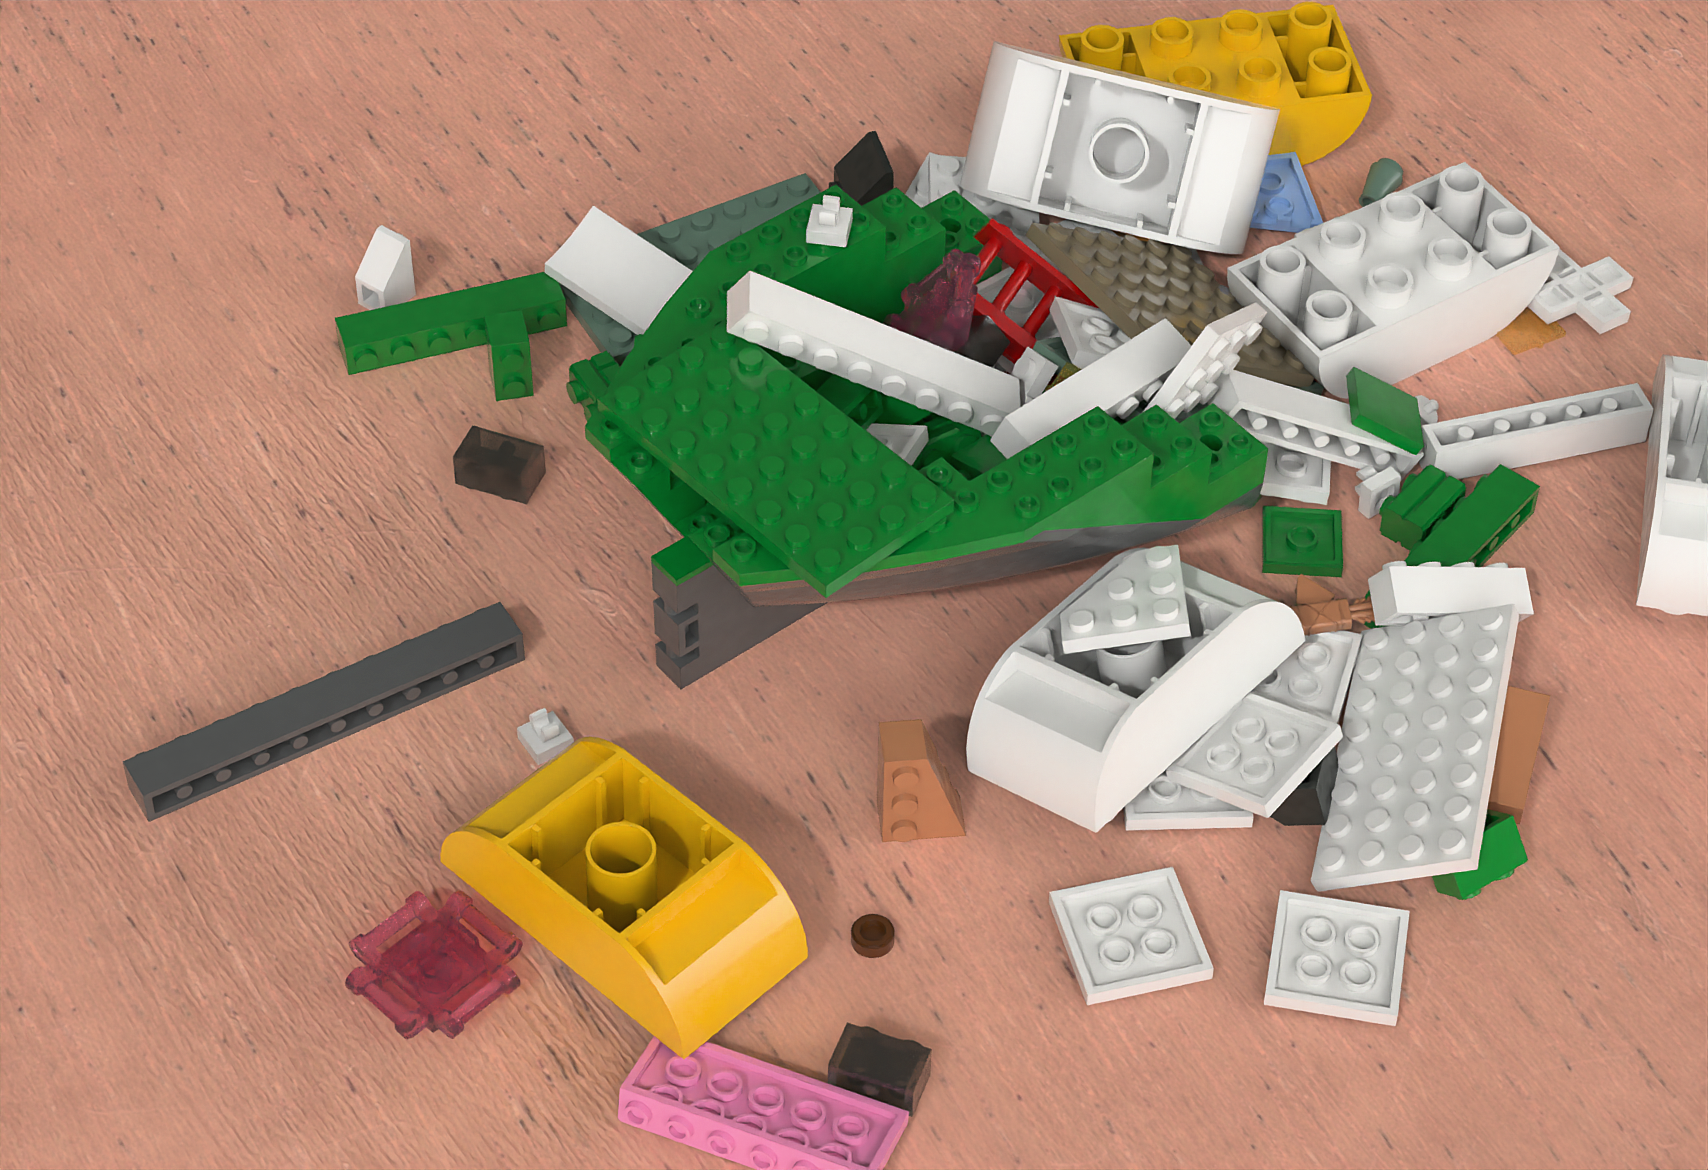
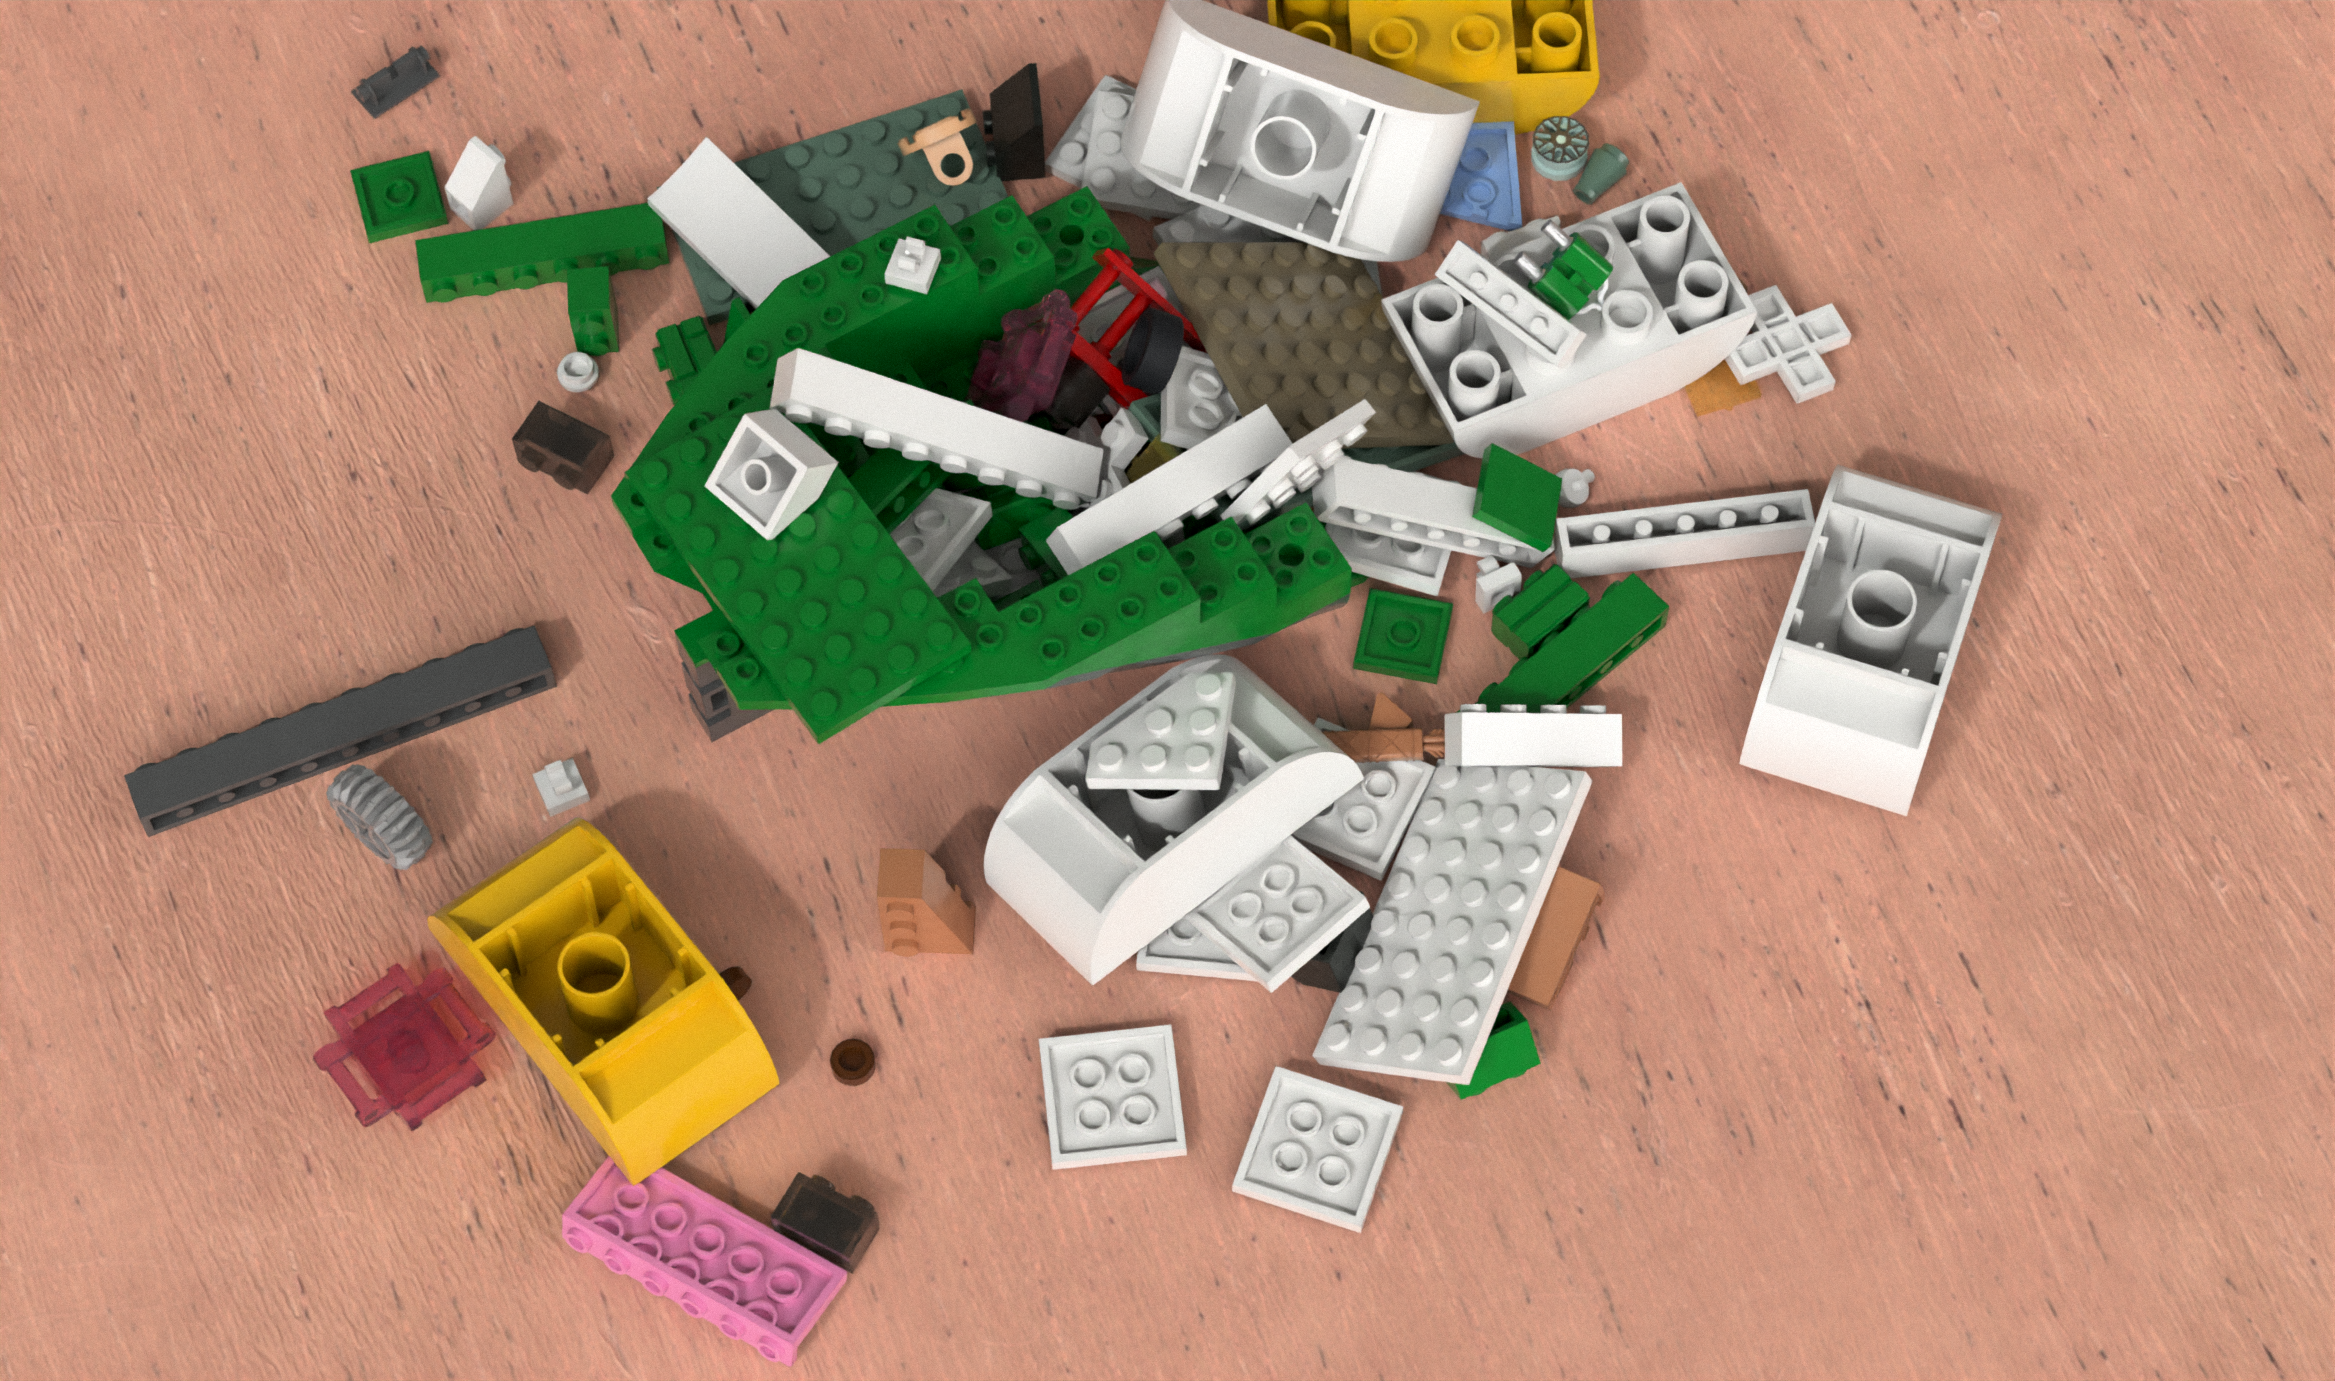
camera: 10 degrees right, 15 degrees up
(291, 213) = (395, 82): none -> dark grey hinge
(310, 296) = (399, 197): none -> green tile
(378, 769) = (379, 817): none -> light grey gear
(499, 410) = (577, 372): none -> white plate
(739, 377) = (770, 472): none -> white slope
(797, 191) = (942, 139): none -> light nougat tile
(1046, 299) = (1152, 351): none -> black tyre
(1339, 169) = (1561, 135): none -> light aqua wheel
(1350, 249) = (1510, 304): none -> white plate
(1394, 224) = (1569, 274): none -> green piece

